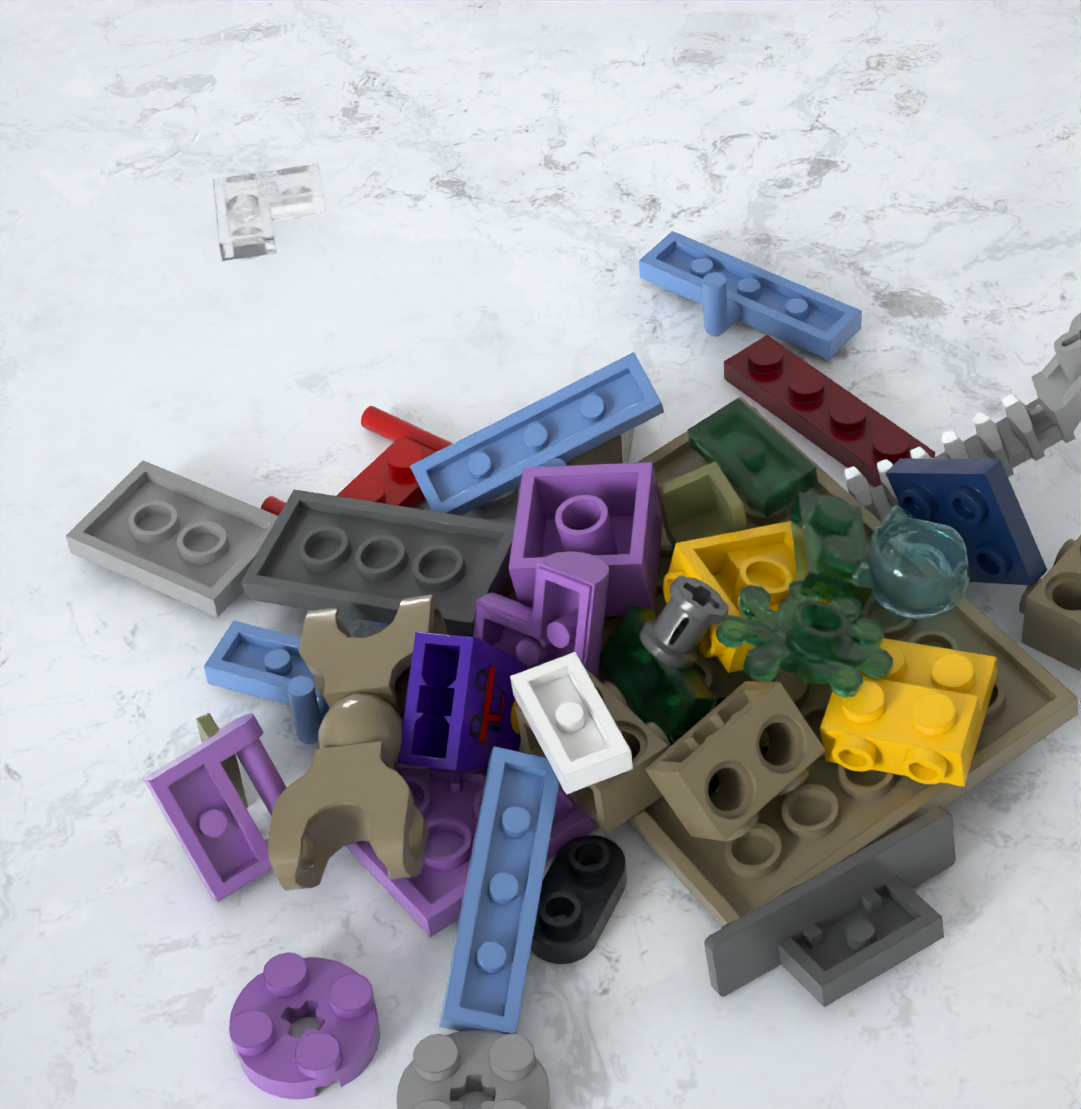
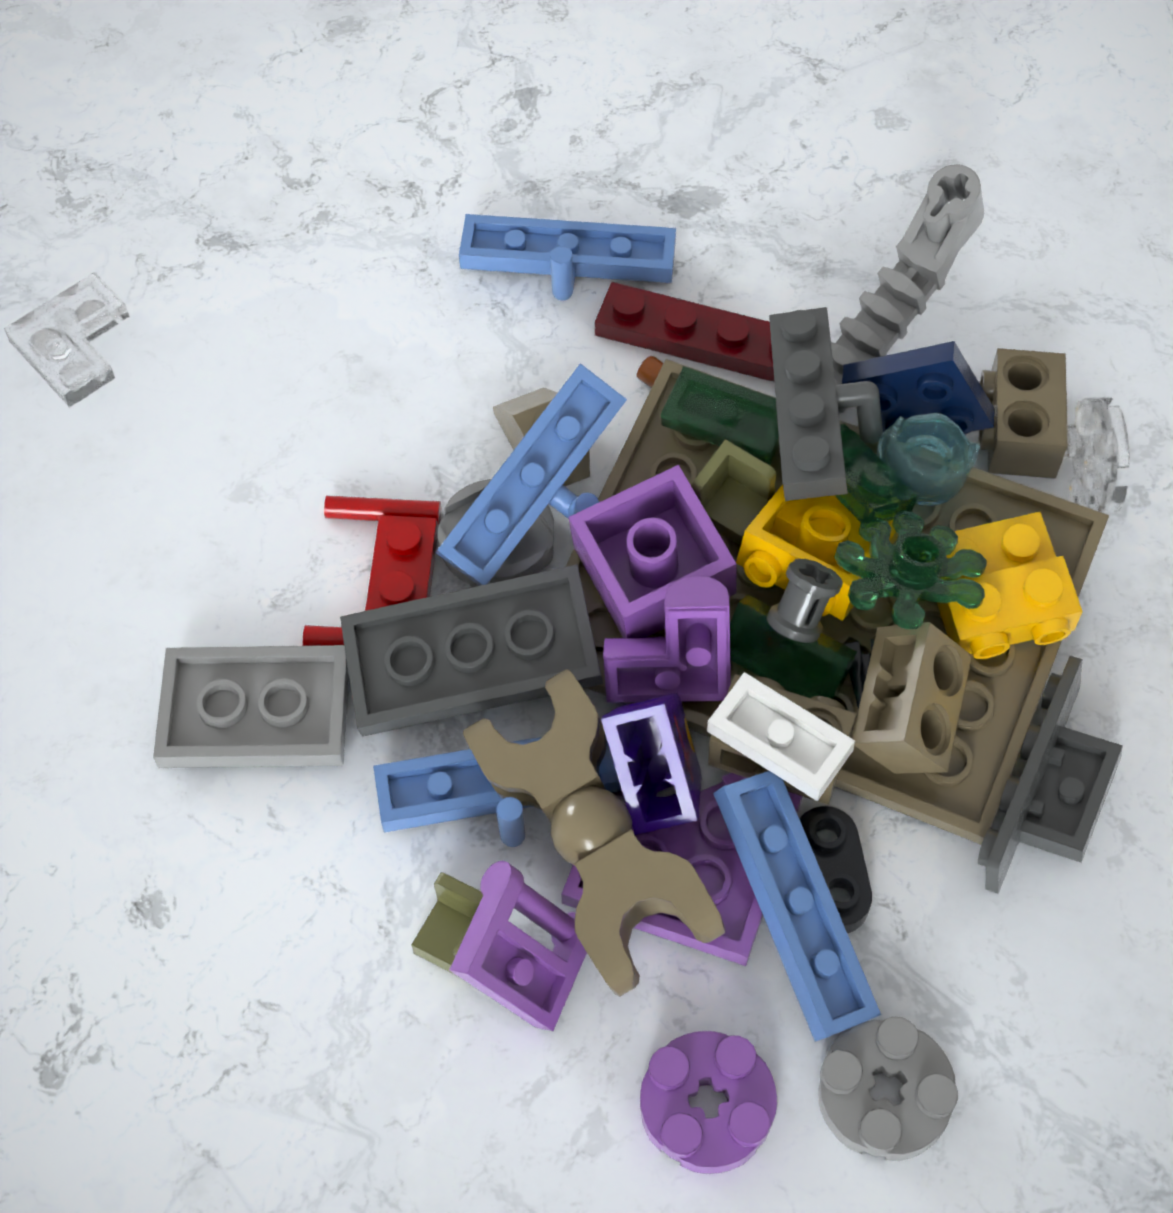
camera: 35 degrees left, 15 degrees up
(824, 464) = (810, 404): none -> dark grey plate

